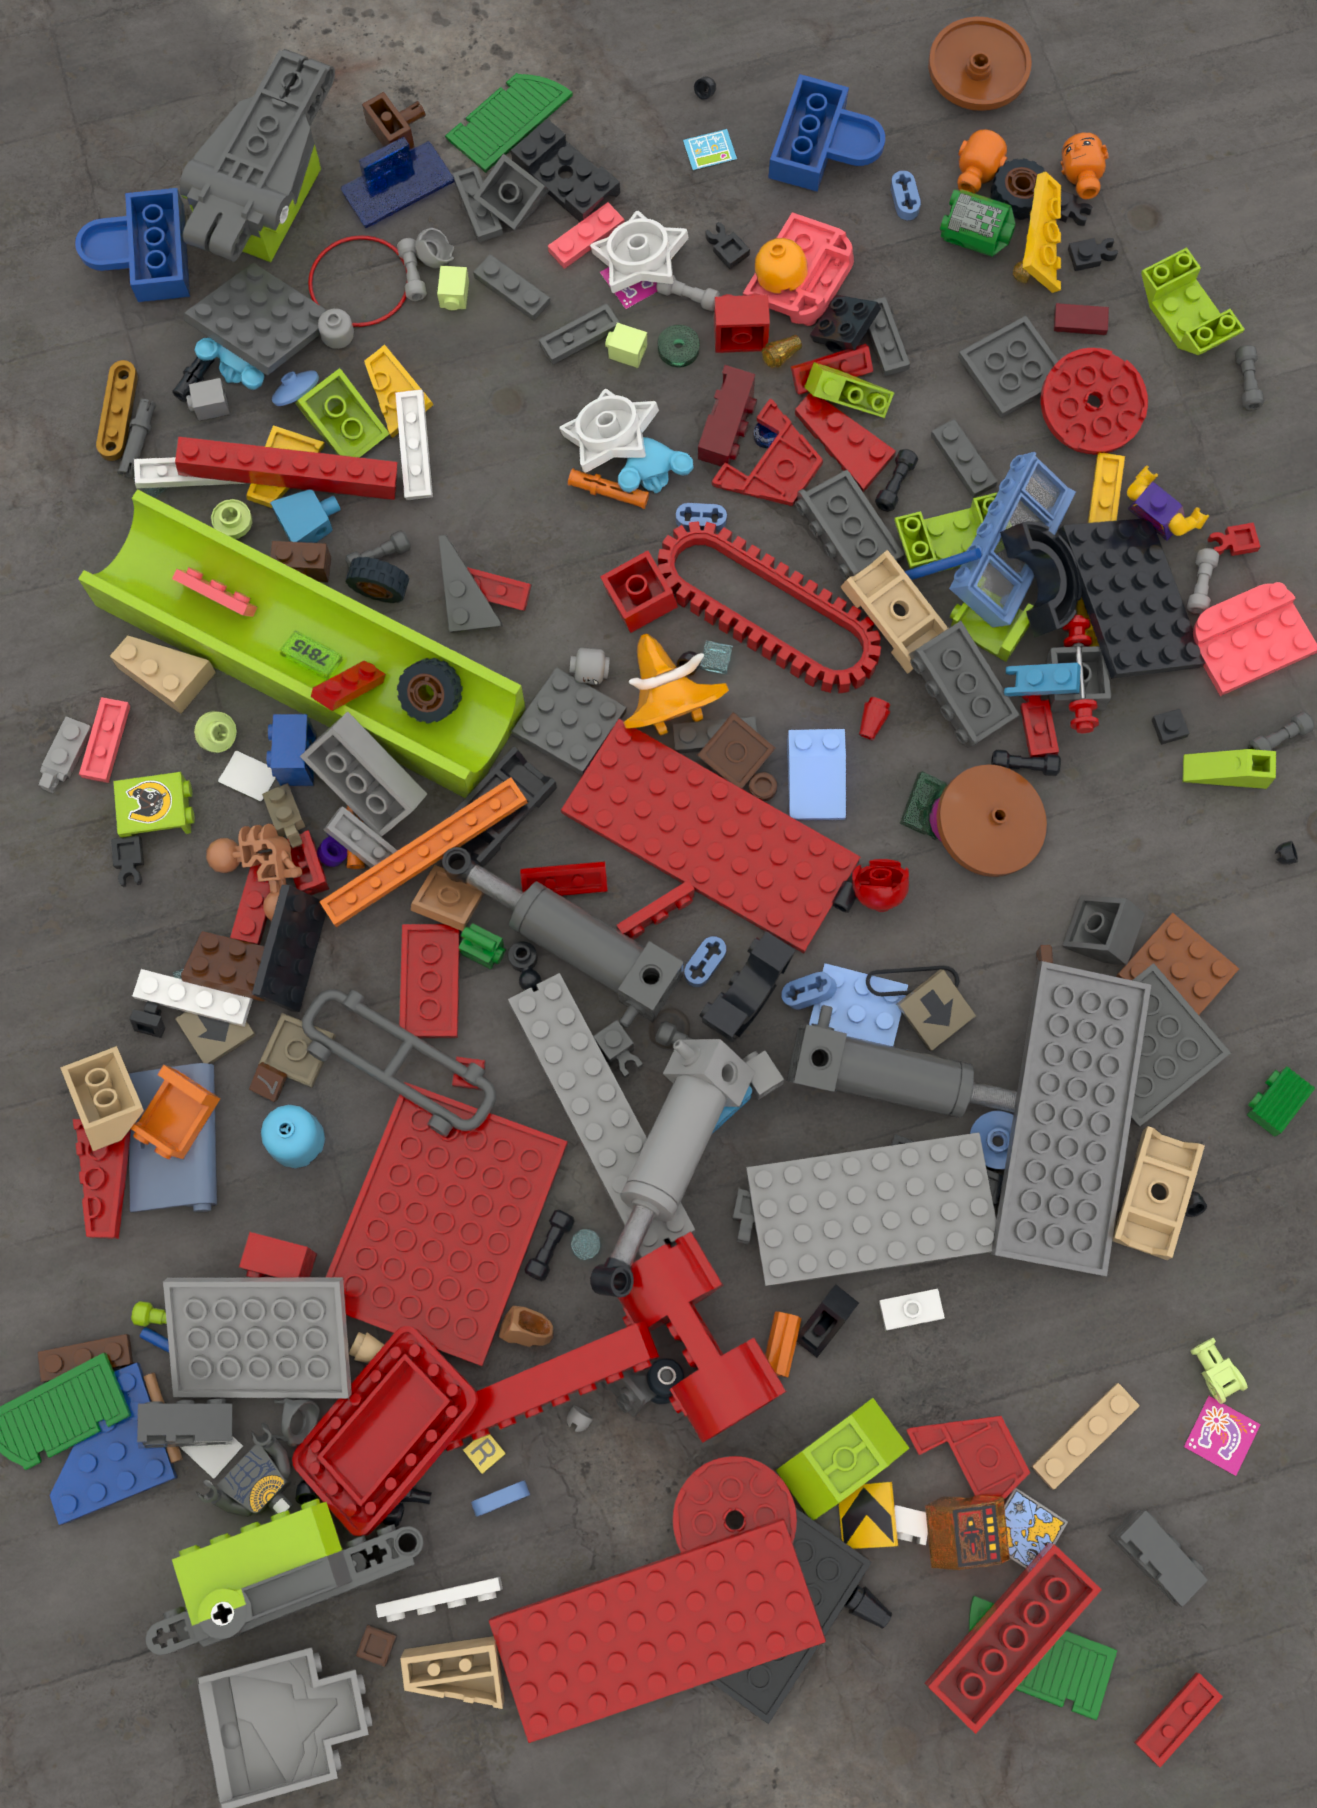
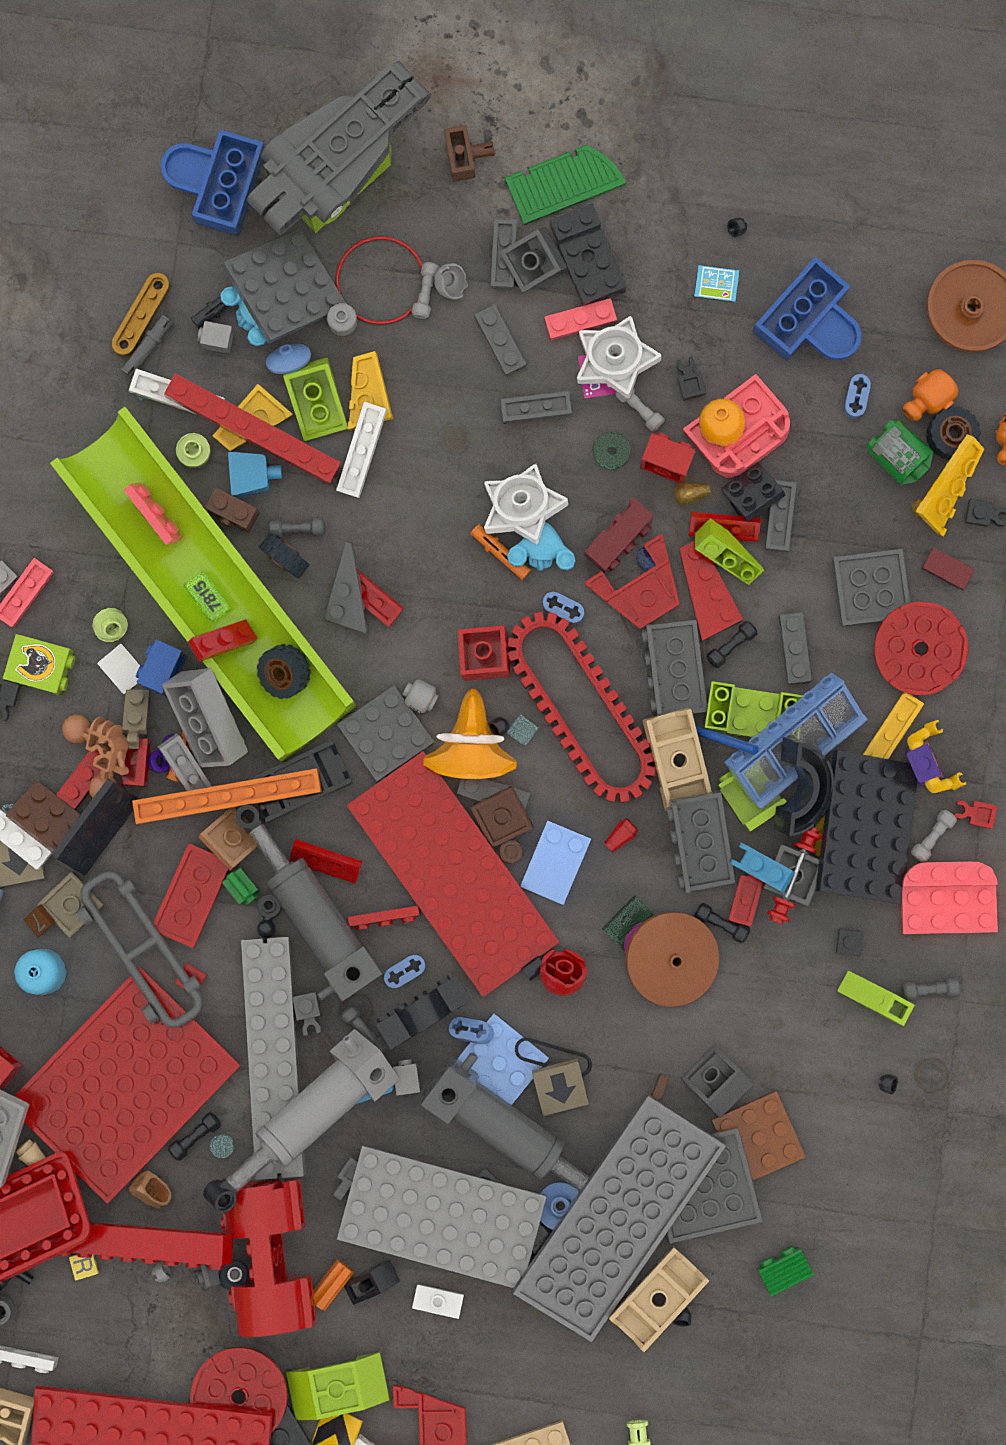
camera: 25 degrees right, 10 degrees up
(163, 671) = (89, 558): tan wedge -> none
(395, 179) = (446, 205): clear blue bracket -> none
(453, 287) = (451, 322): yellowish green brick -> none
(500, 1498) = (80, 1304): medium blue beam -> none
(626, 345) = (569, 434): yellowish green brick -> none
(1071, 209) = (986, 465): black plate -> none

